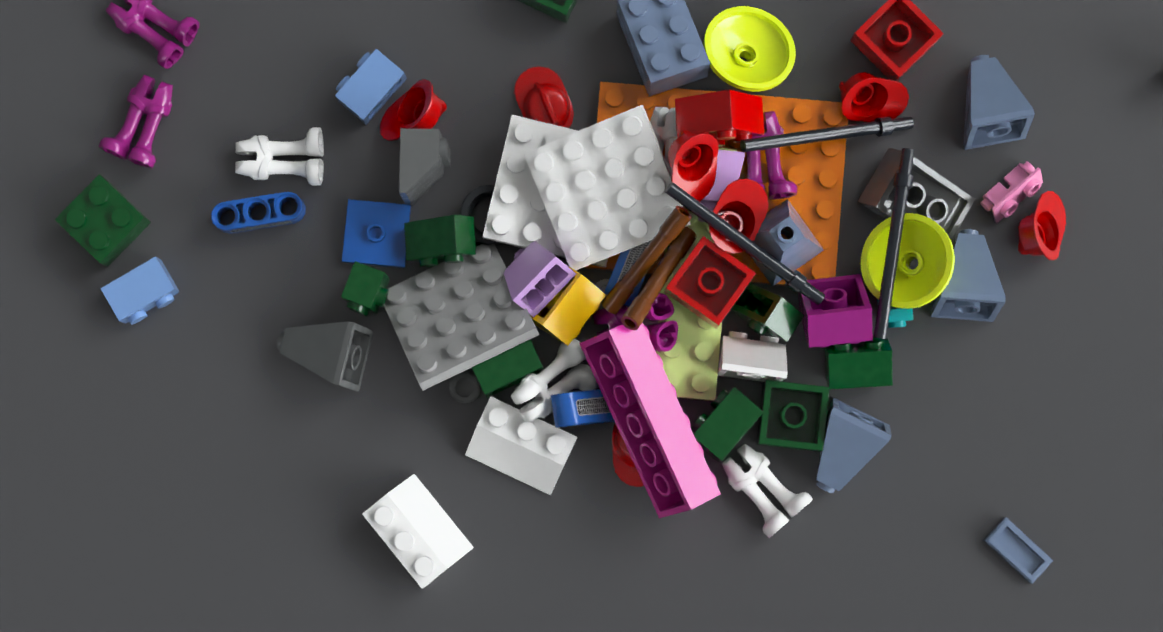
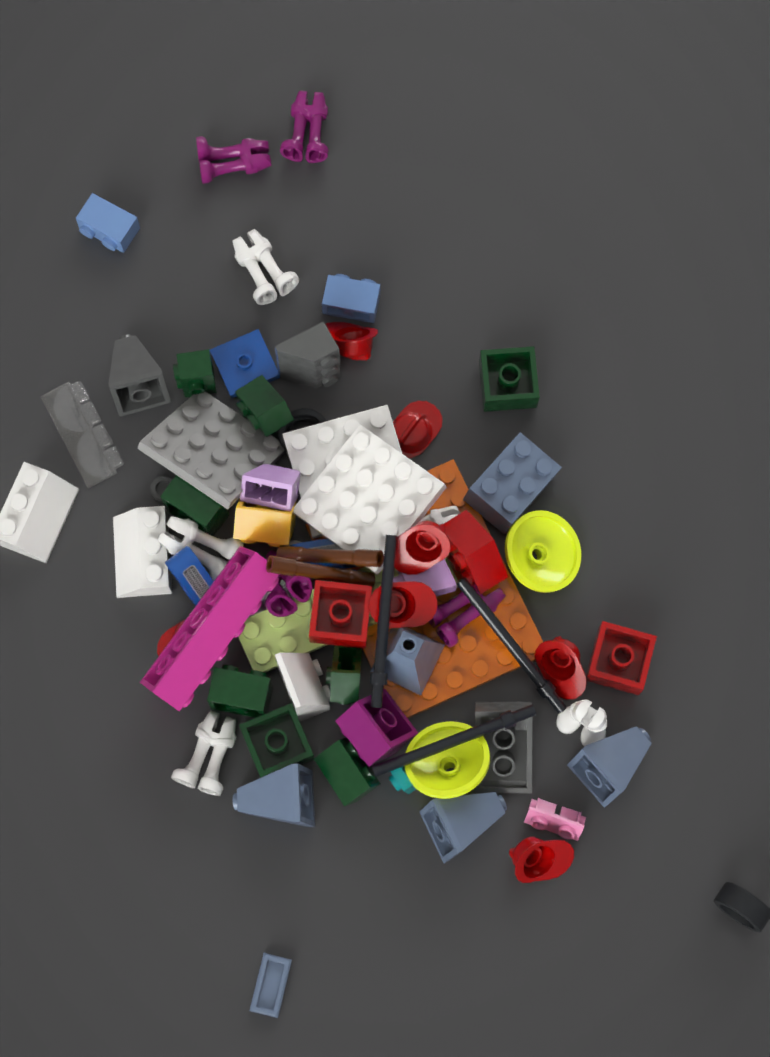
camera: 60 degrees right, 10 degrees down
(102, 220) = (144, 170): dark green brick -> none
(243, 208) = (206, 261): blue beam -> none
(353, 443) = (82, 440): none -> clear windscreen
(945, 104) = (582, 713): none -> white piece

